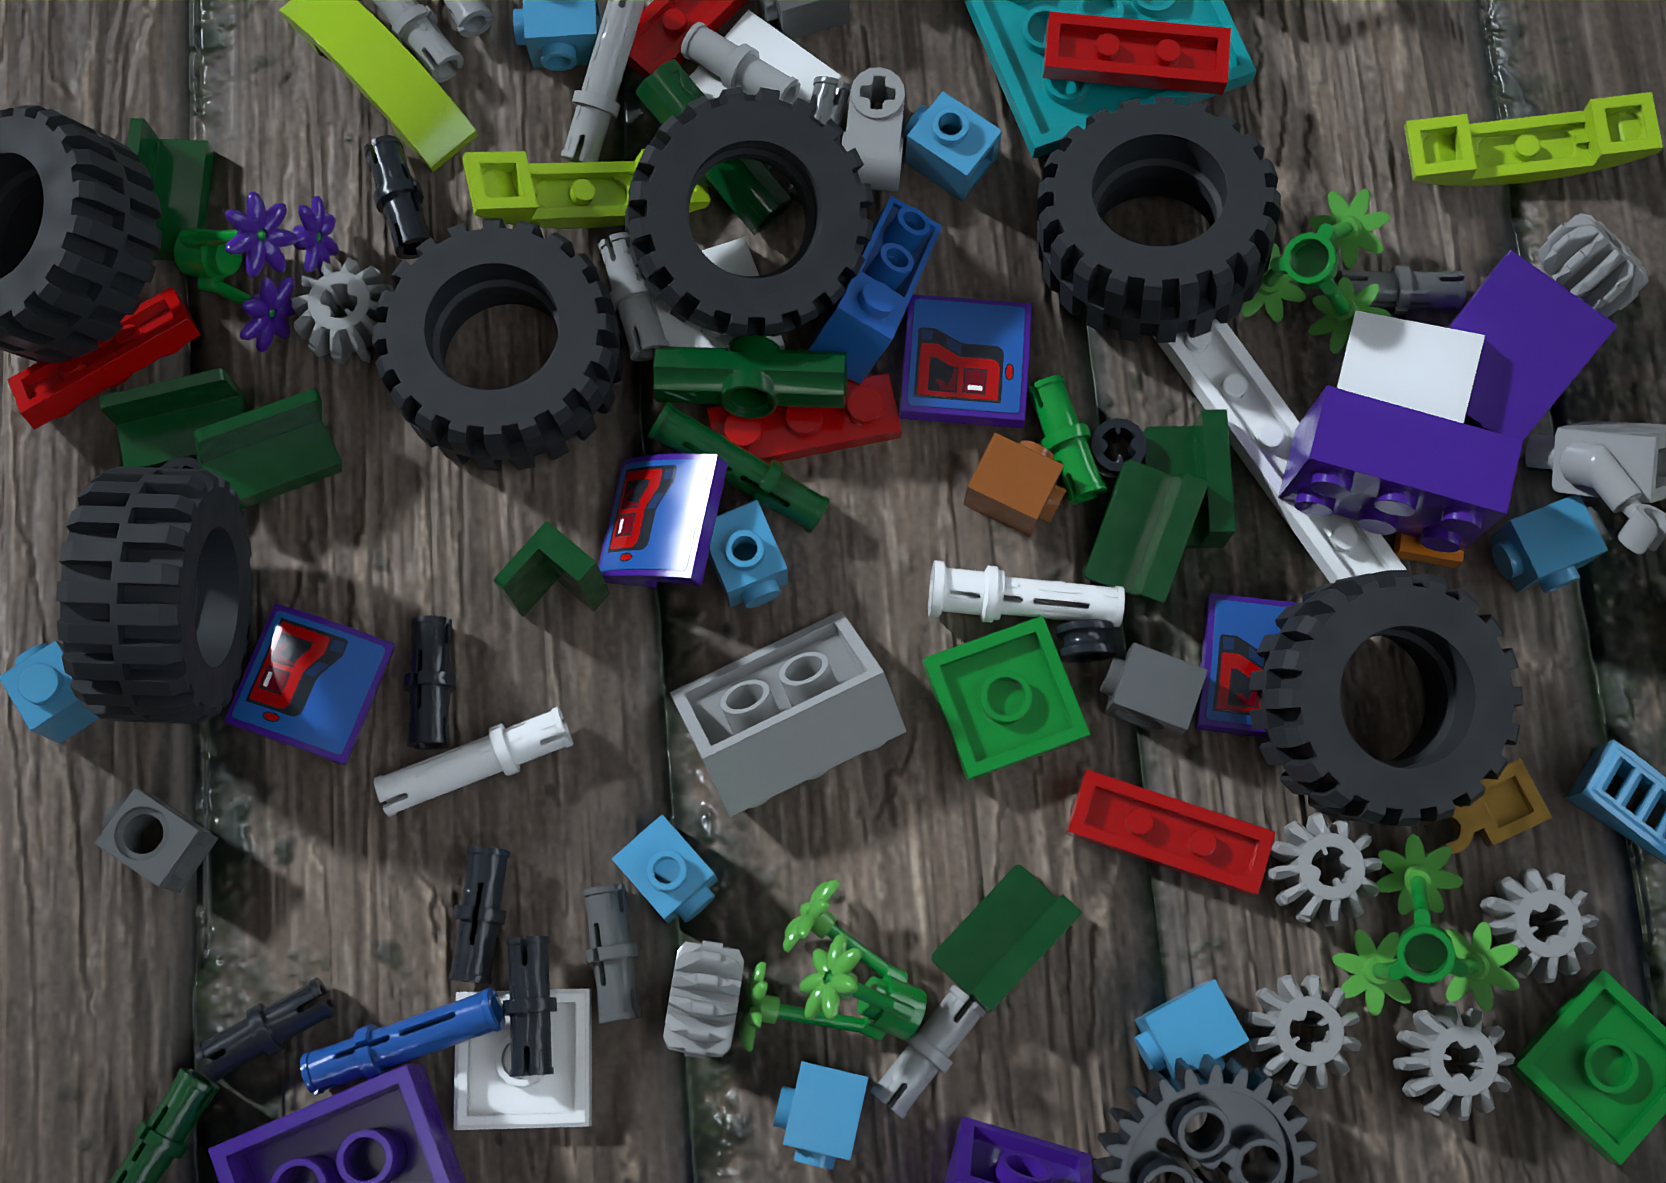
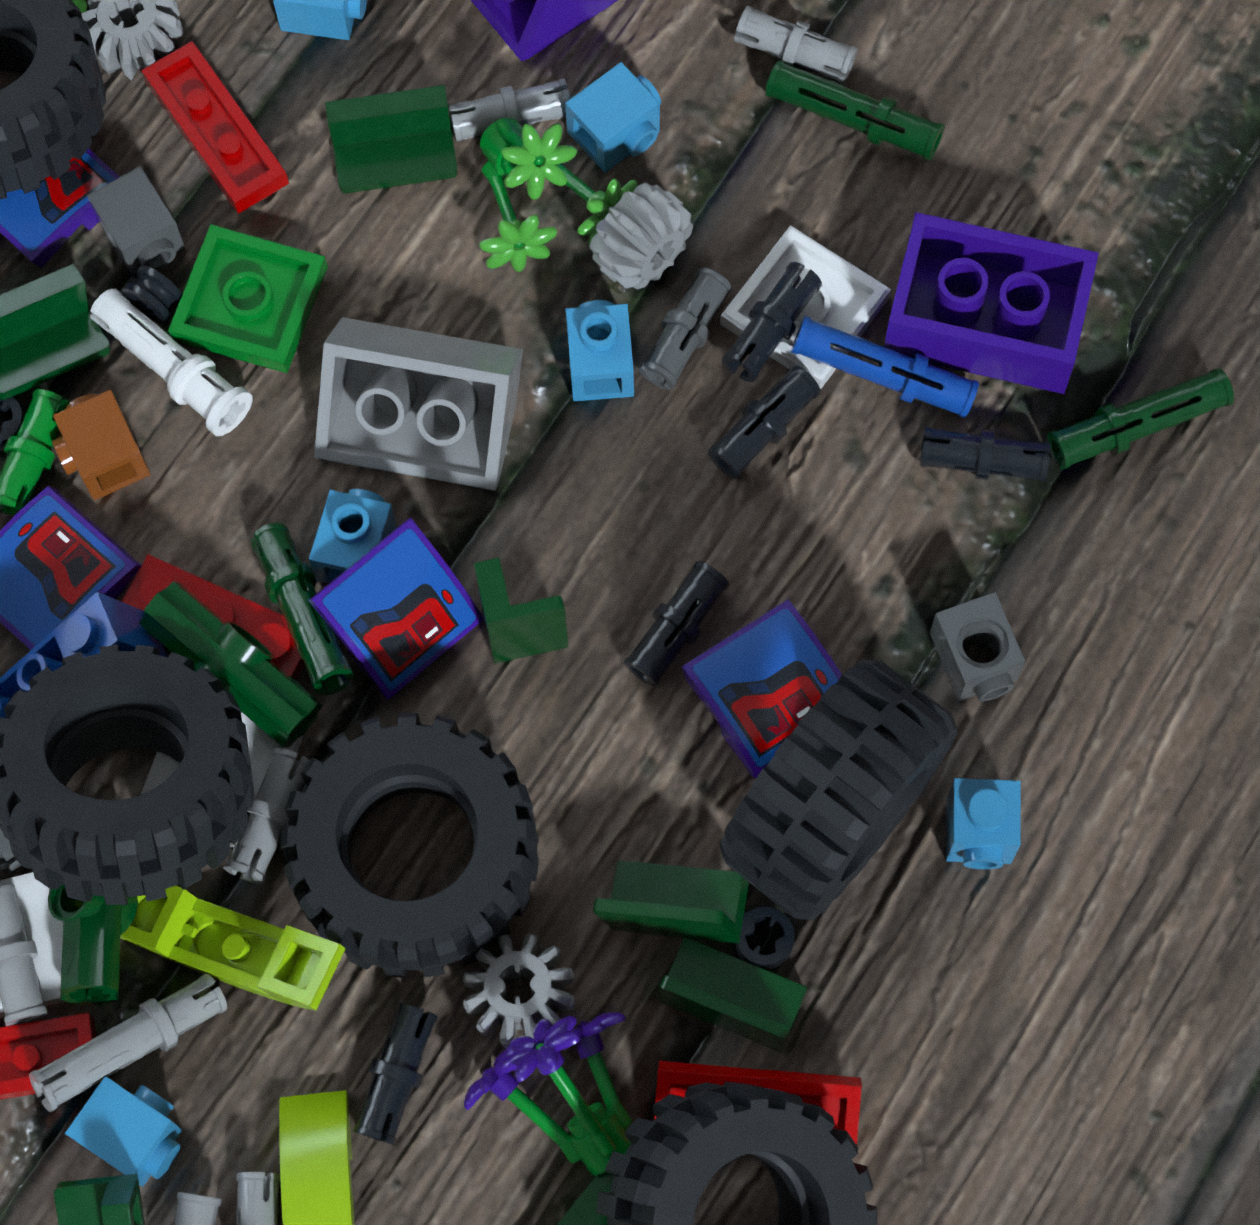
camera: 140 degrees left, 5 degrees down
(497, 752) = (685, 537): white pin -> none

